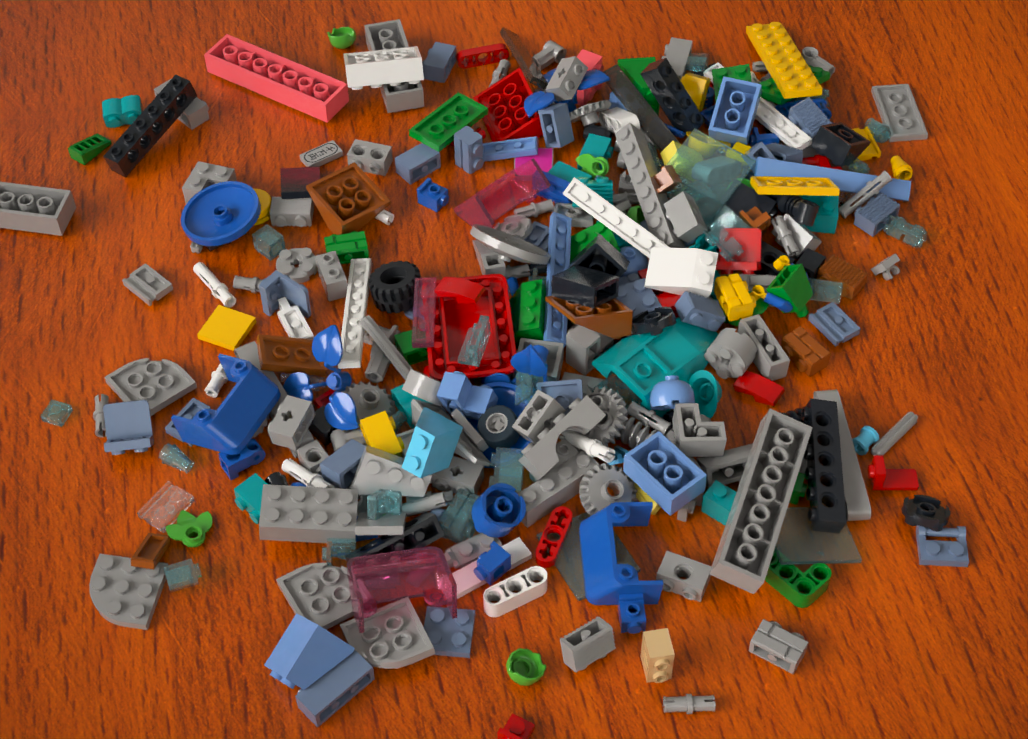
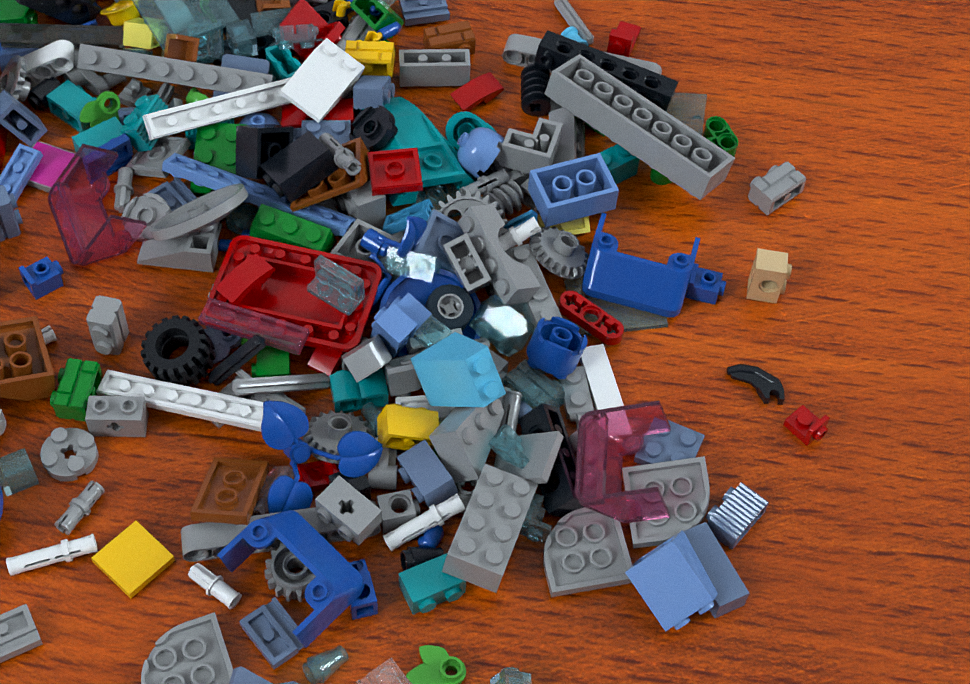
camera: 75 degrees left, 5 degrees up
(280, 286) = (129, 465): sand blue bracket -> none
(293, 320) = (167, 479): white hinge -> none
(395, 694) = (736, 515): none -> sand blue brick
(399, 318) = (236, 360): none -> black axle
(400, 239) = (107, 325): none -> light grey brick
(463, 416) = (431, 332): none -> clear light blue plate
(492, 564) = (612, 376): blue brick -> none
(520, 582) = (643, 361): white beam -> none
(525, 667) = (741, 390): bright green hair -> none
(550, 686) = (761, 380): none -> black piece
(587, 644) = (734, 328): light grey brick -> none
(588, 376) = (398, 221): none -> dark azure tile
(599, 302) = (342, 156): none -> light grey pin
(611, 344) = (395, 171): none -> red tile
(678, 566) = (677, 229): light grey brick -> none
(685, 217) = (246, 51): light grey brick -> none
(689, 703) = (813, 276): light grey pin -> none
(731, 353) = (432, 91): light grey brick -> none
(925, 512) = (674, 31): black plate -> none
(942, 552) = (712, 41): sand blue plate -> none

